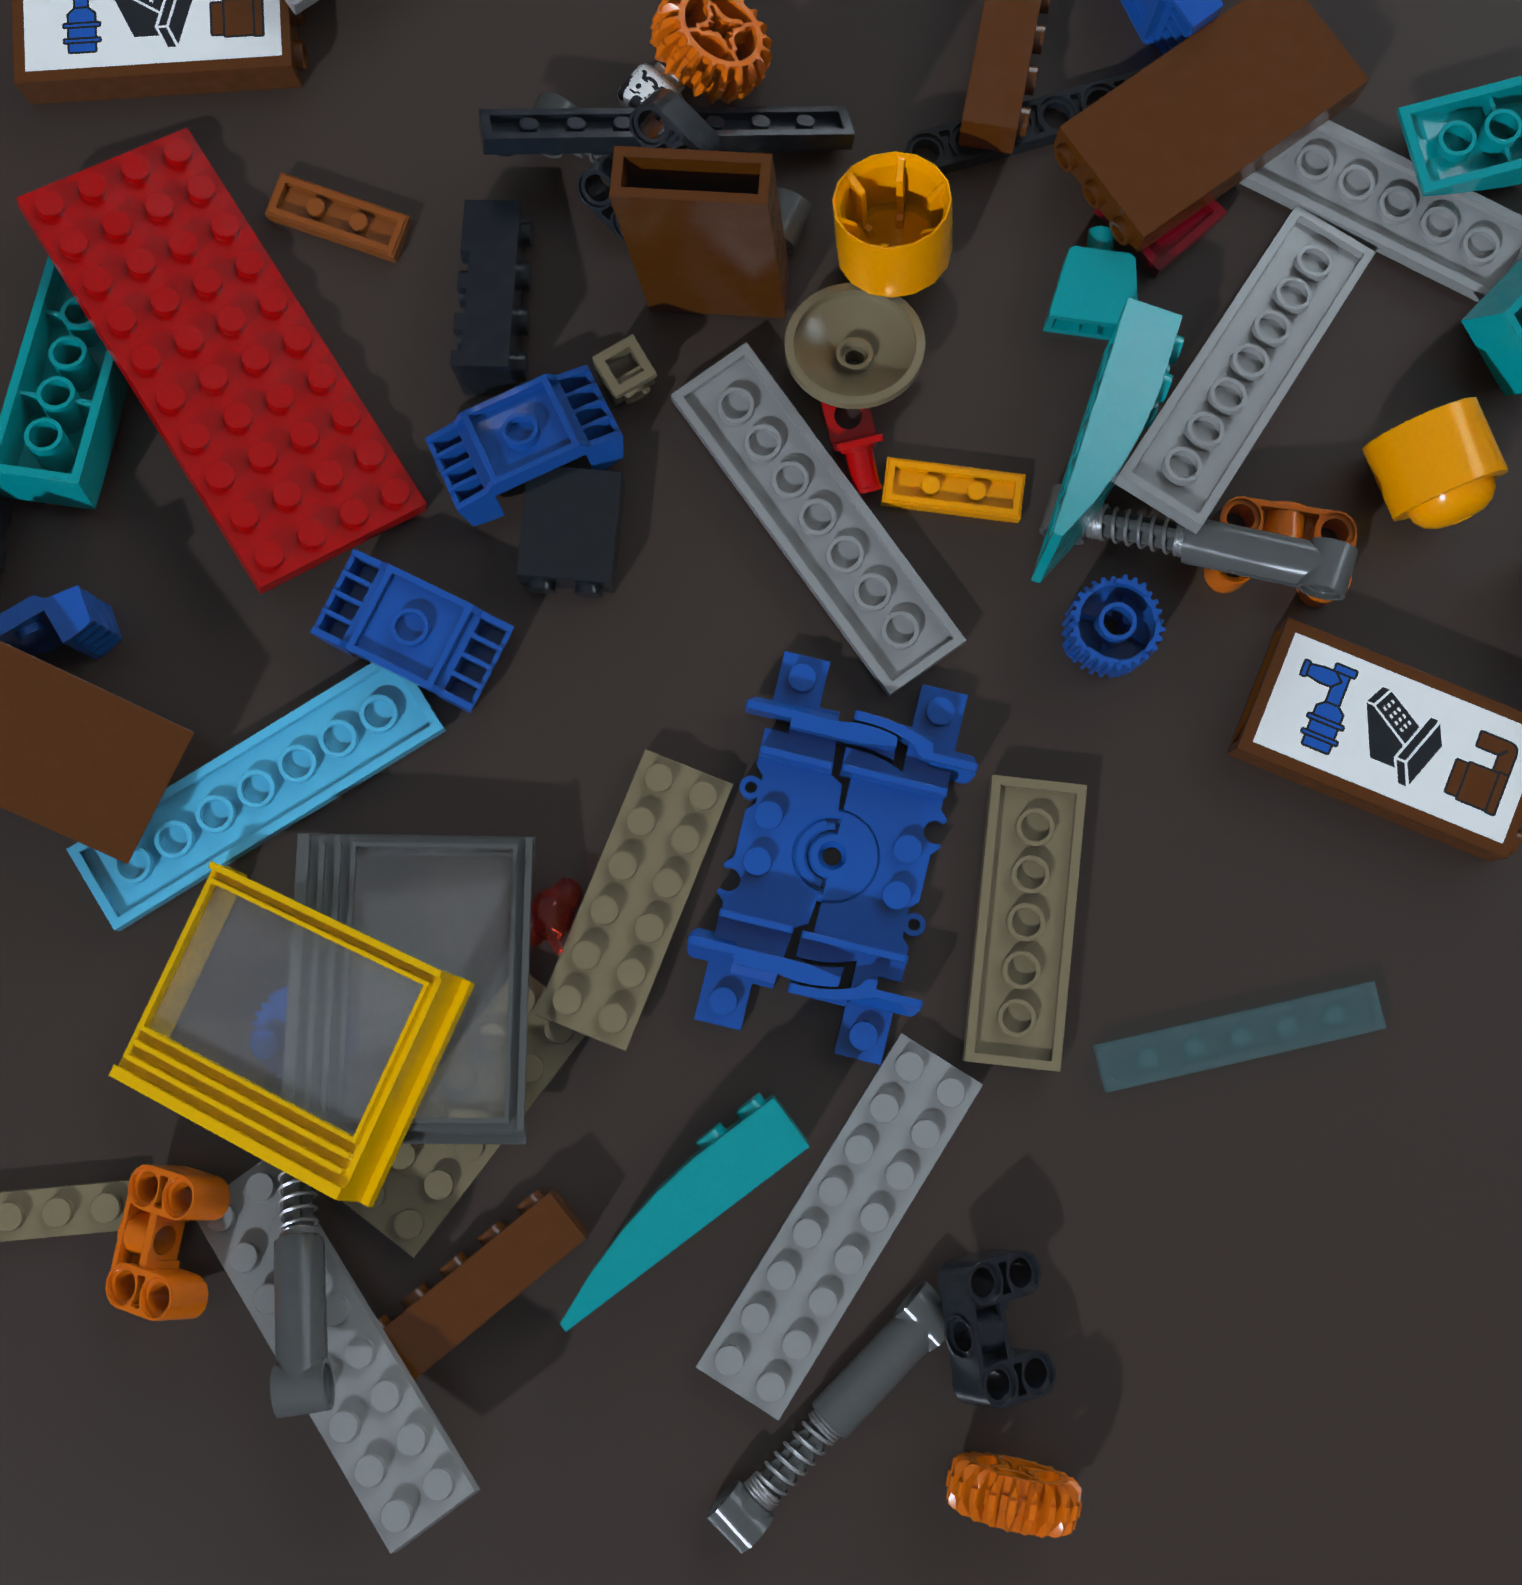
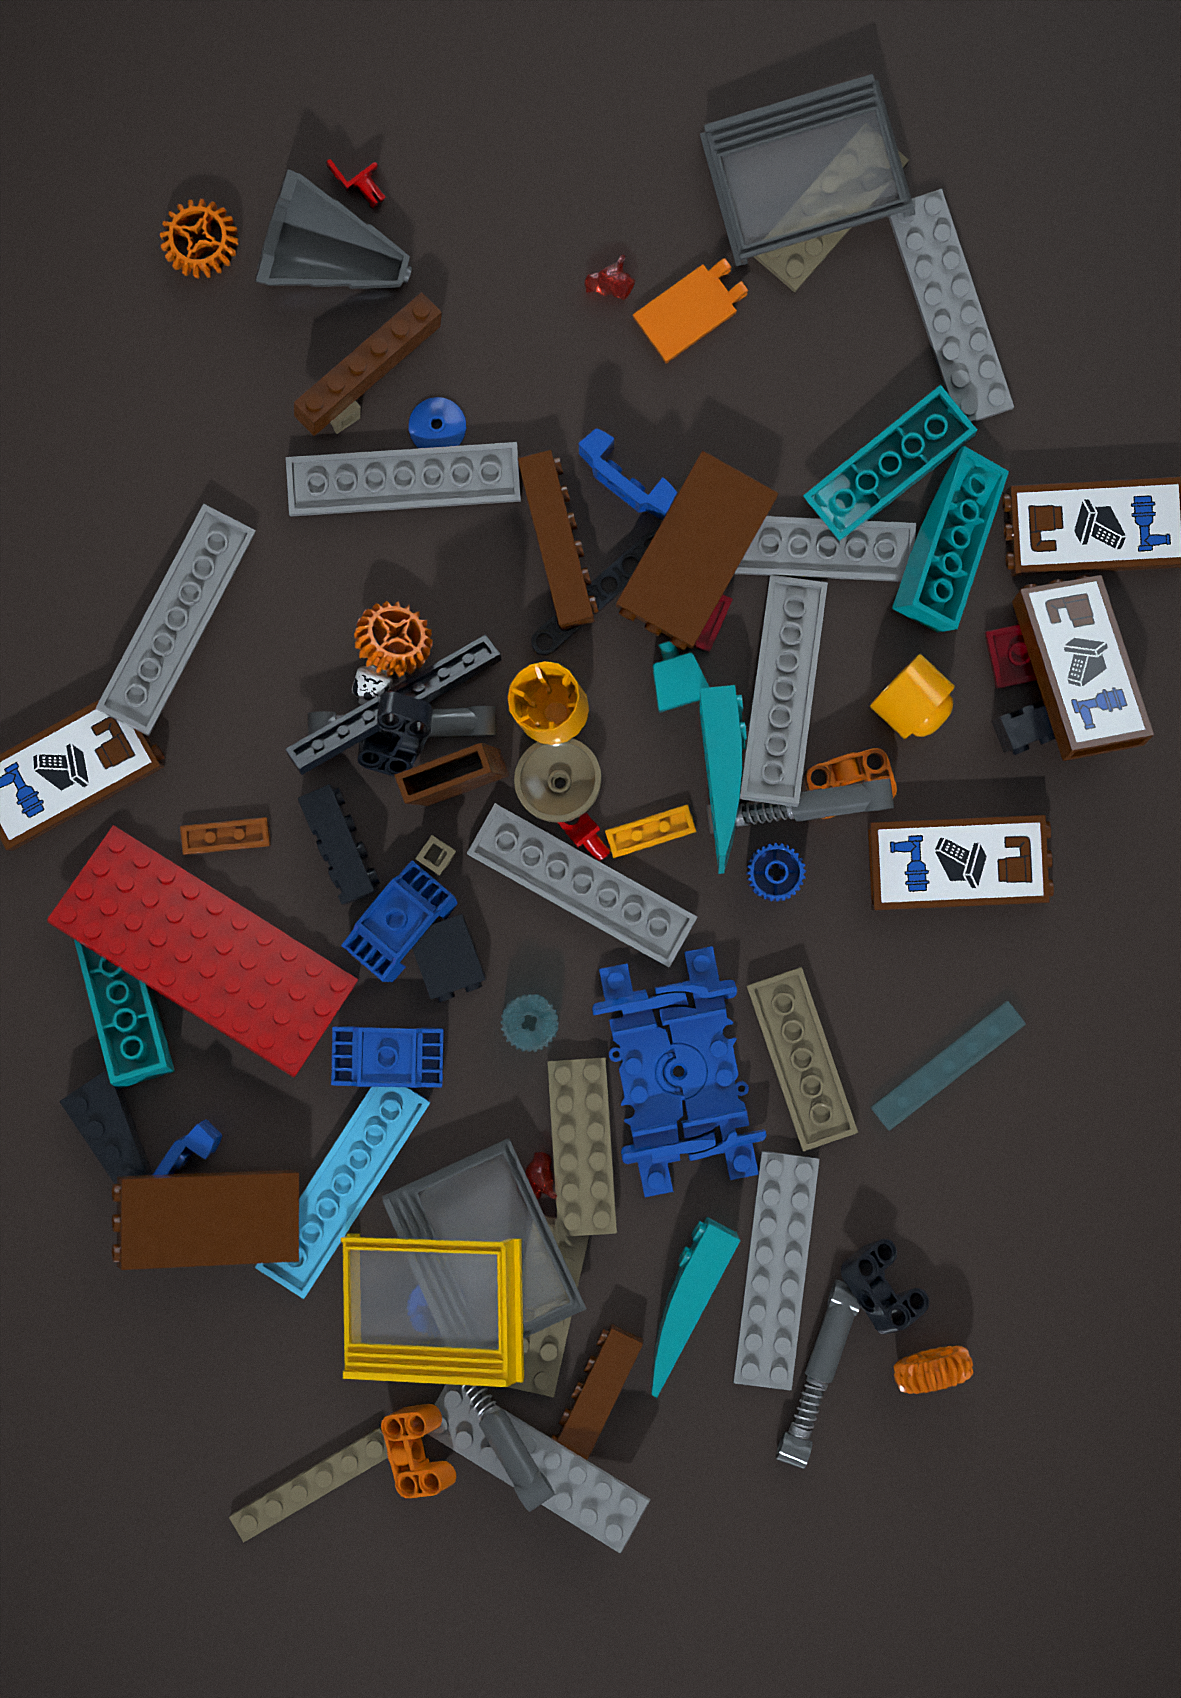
camera: 25 degrees left, 5 degrees up
(626, 660) = (515, 1014): none -> clear light blue brick

